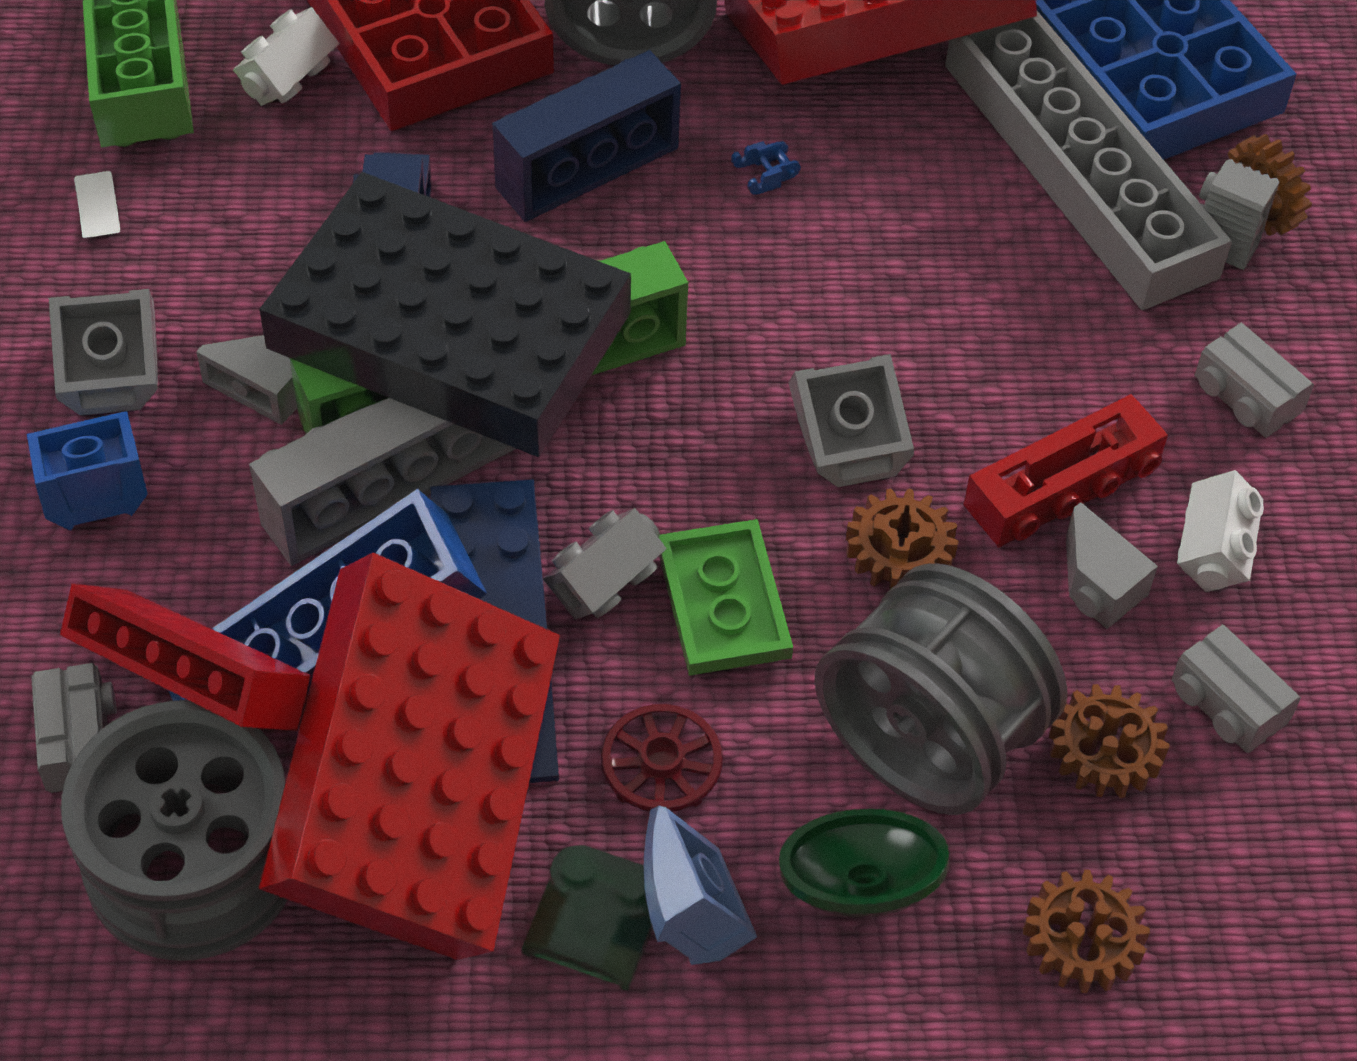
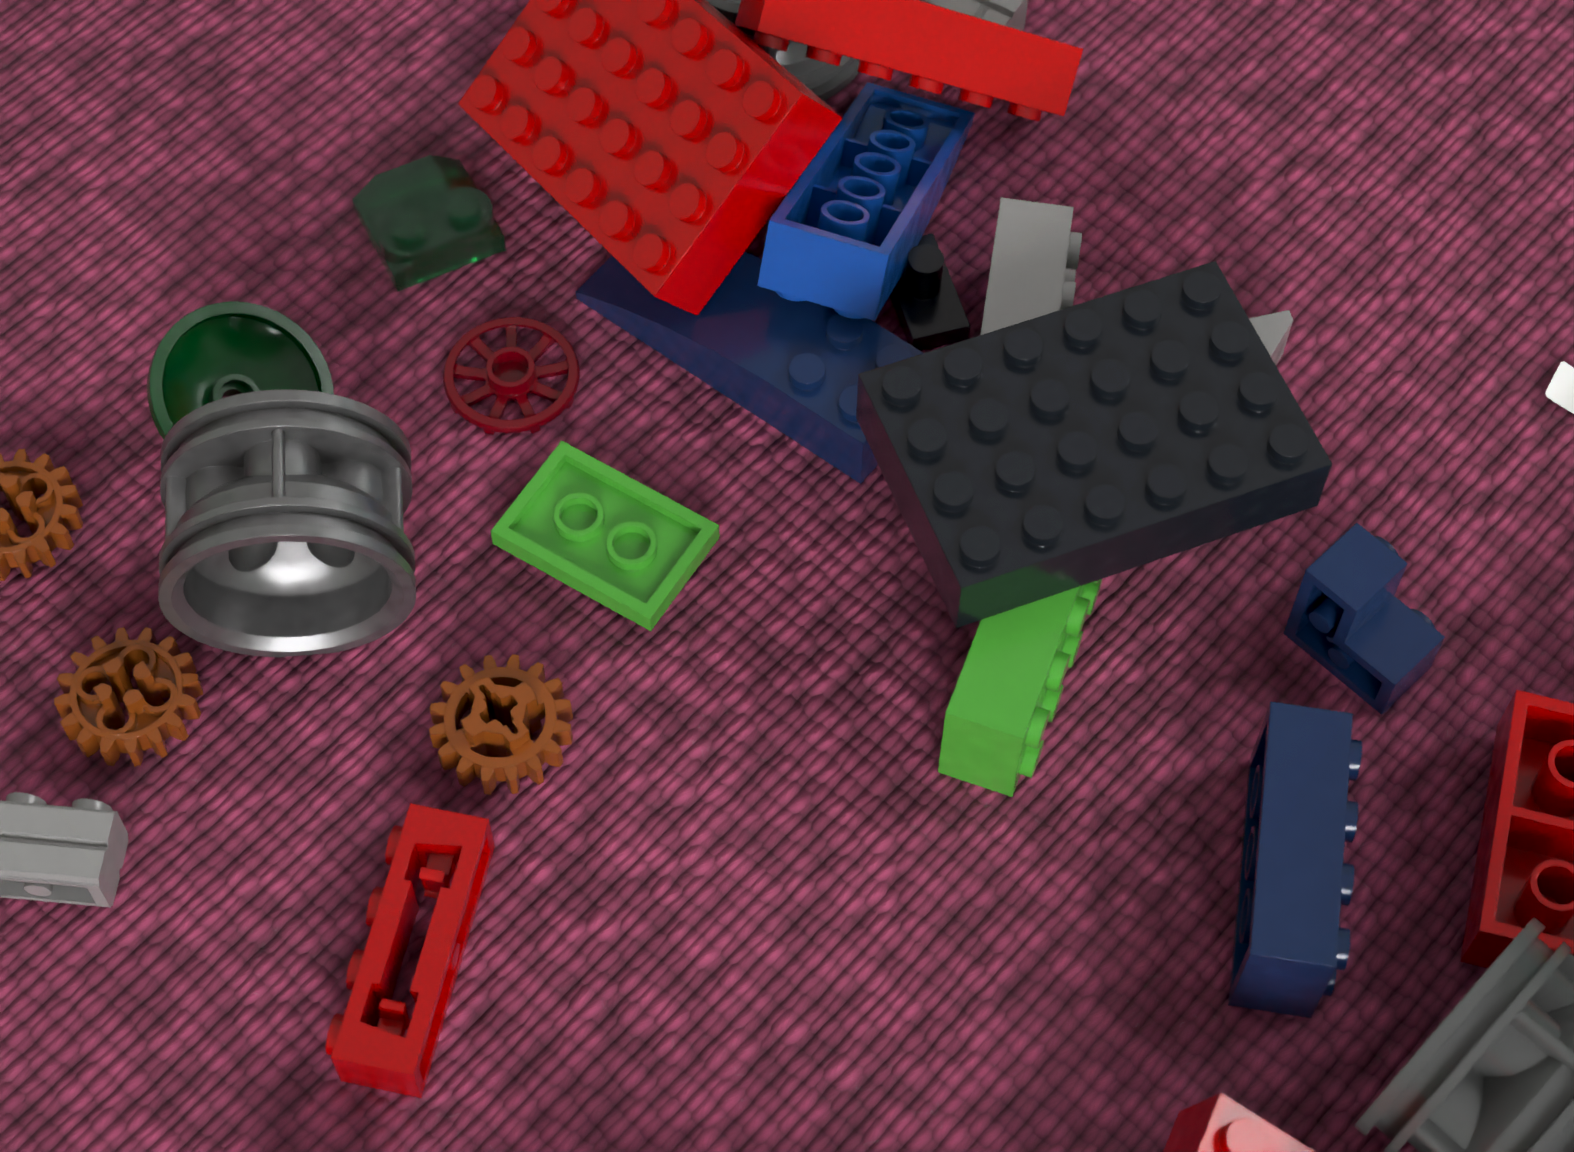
camera: 135 degrees right, 5 degrees up
(87, 470) = (1241, 171): blue slope -> none
(104, 351) = (1379, 268): light grey slope -> none
(616, 554) = (728, 454): light grey brick -> none
(691, 892) = (364, 269): medium blue slope -> none
(761, 155) = (1085, 1051): blue piece -> none
(853, 420) = (684, 804): light grey slope -> none
(1104, 569) = (280, 868): light grey slope -> none
(1220, 531) = (190, 1007): white brick -> none

